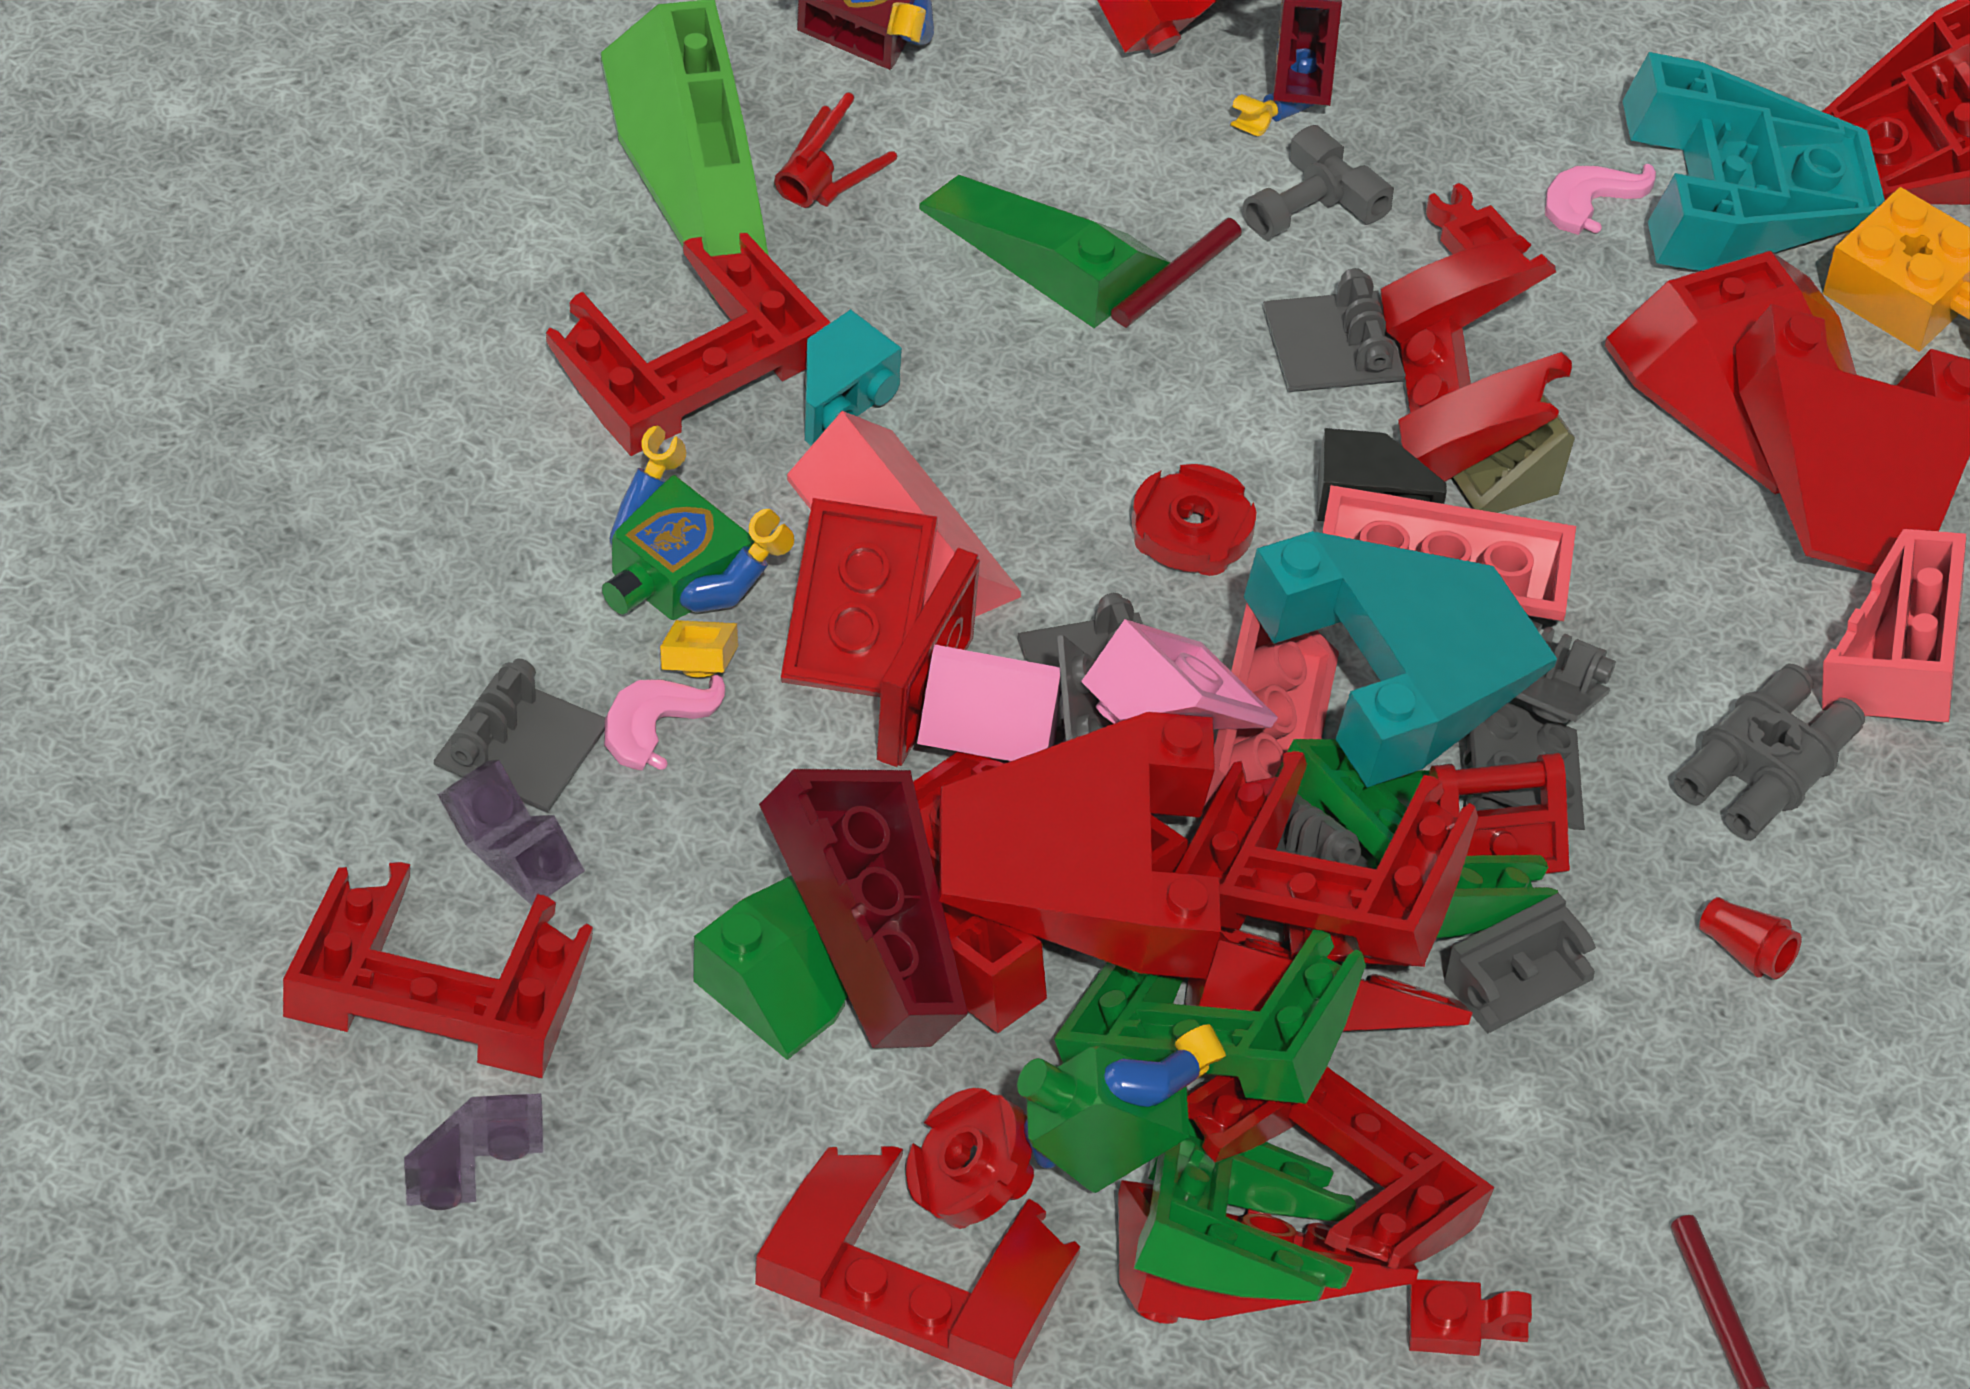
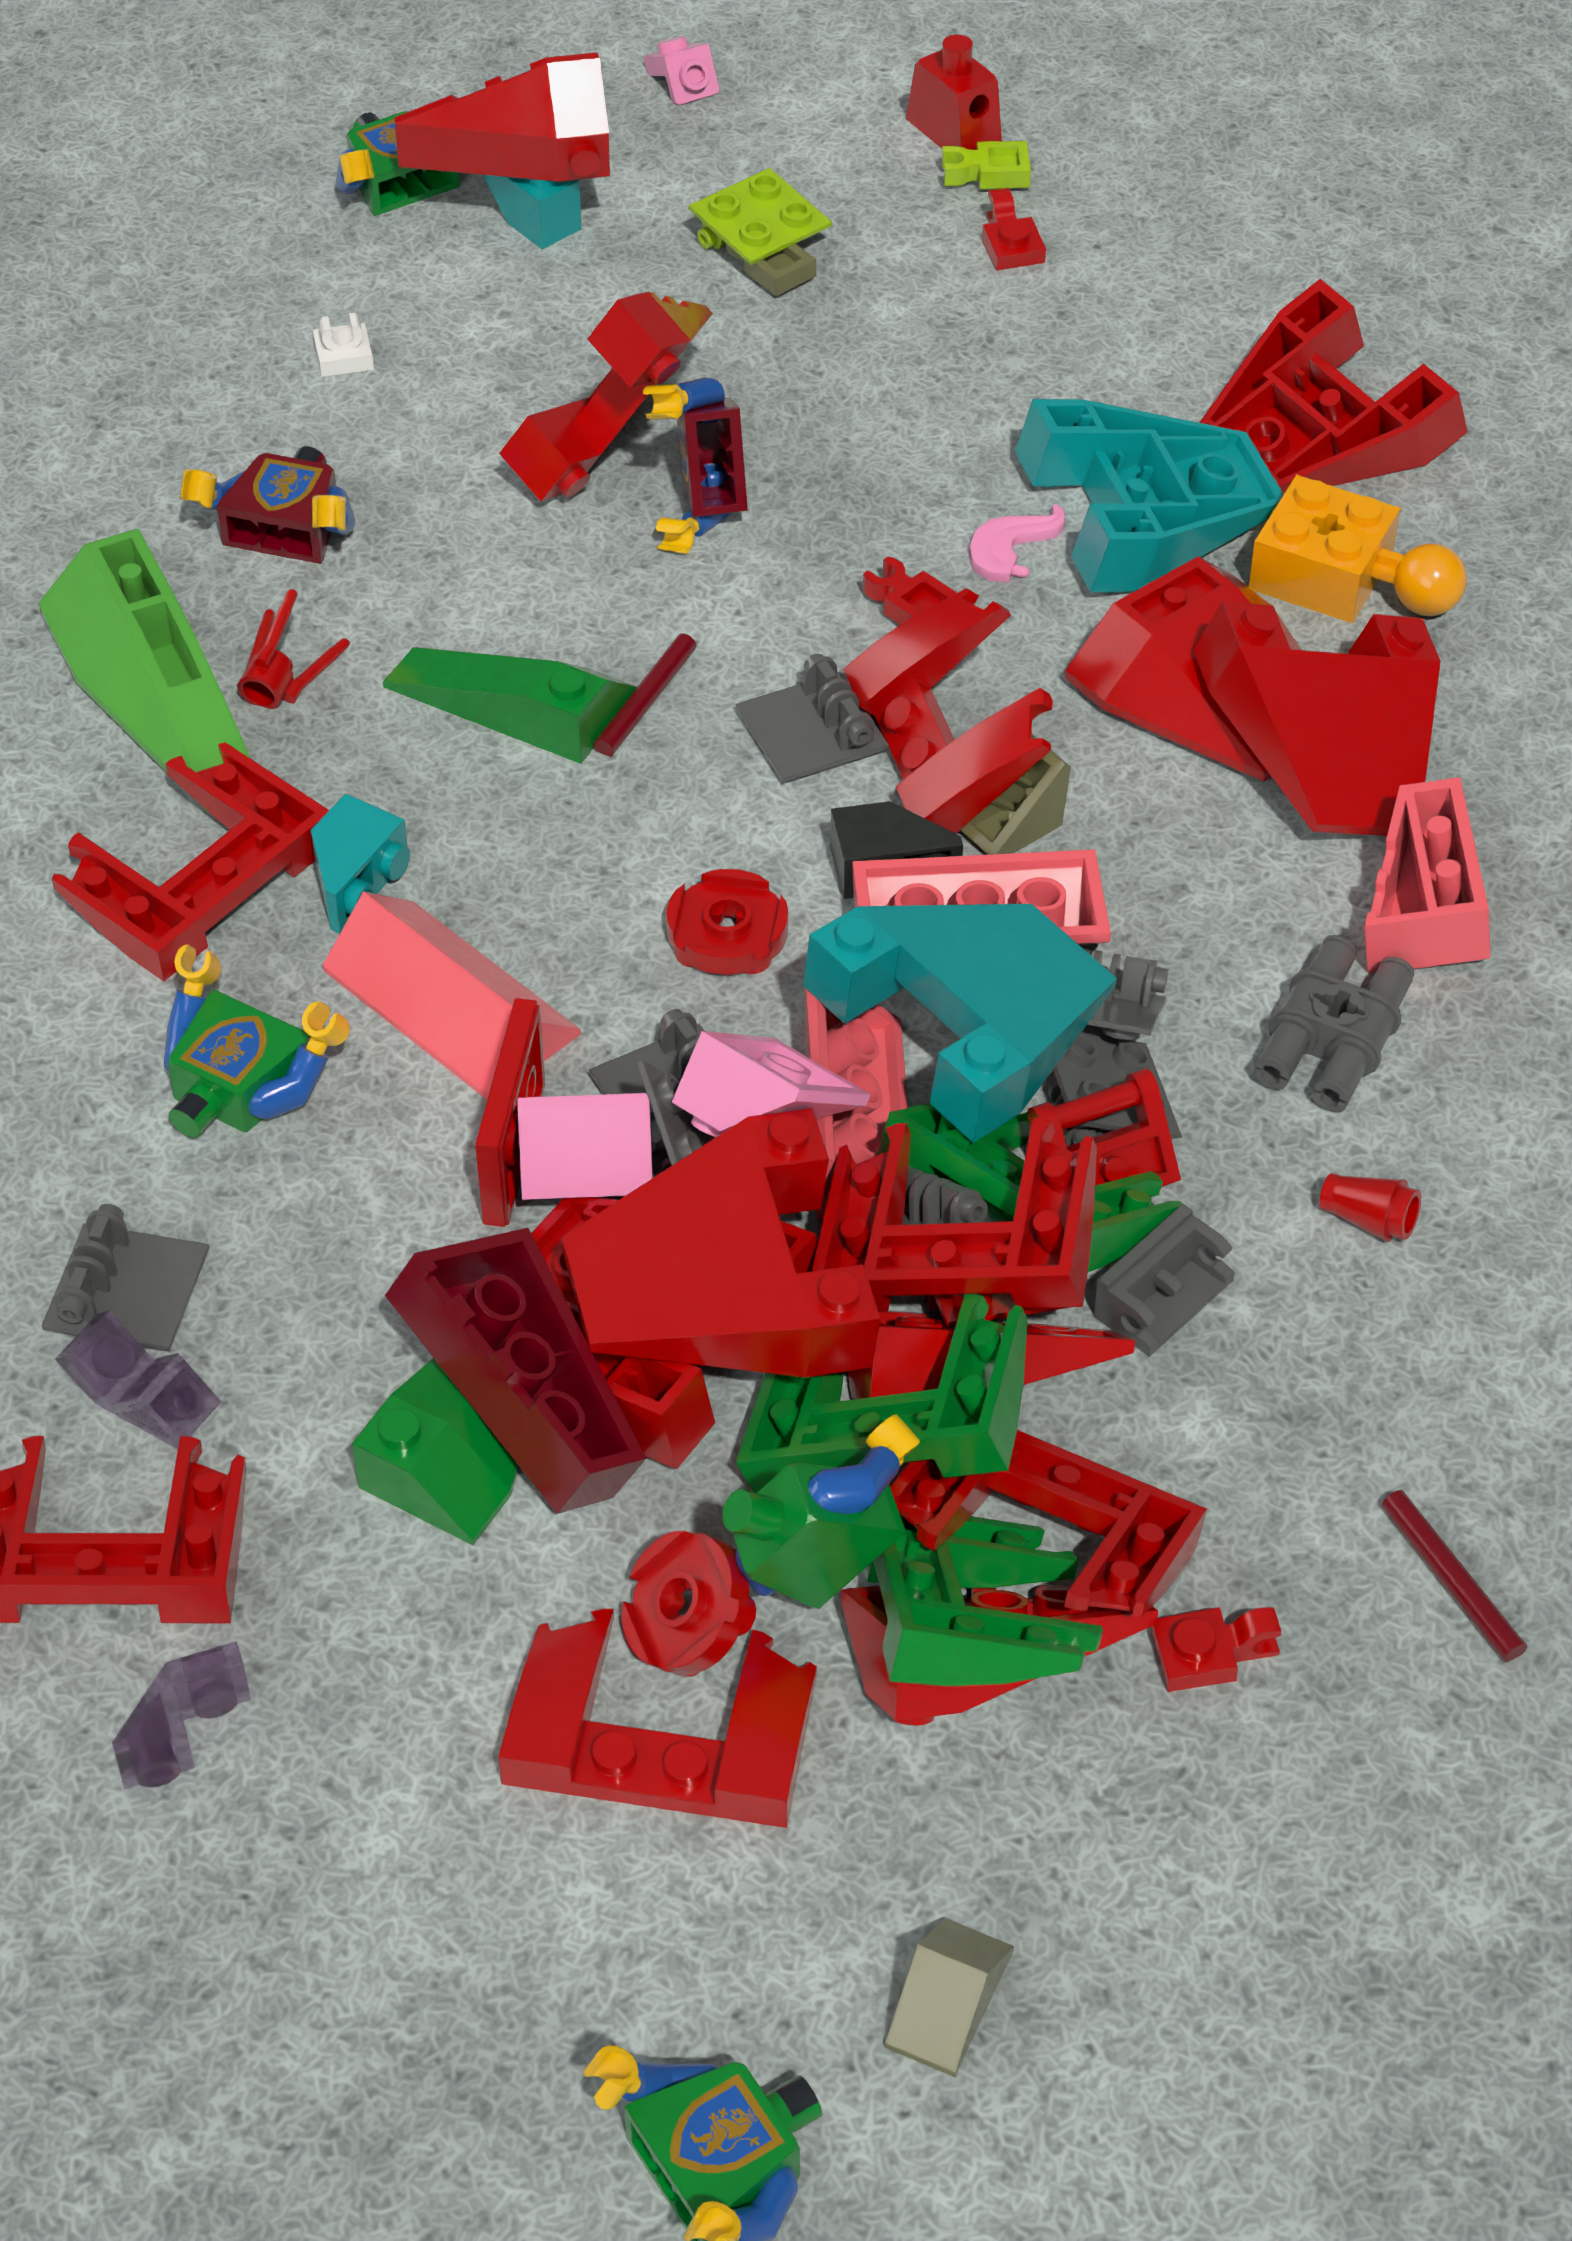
camera: 10 degrees left, 0 degrees up
(634, 713) = (233, 1228): bright pink piece -> none
(699, 647) = (280, 1153): yellow plate -> none
(856, 594) = (424, 1068): red tile -> none
(1326, 180) = (762, 581): dark grey bar -> none

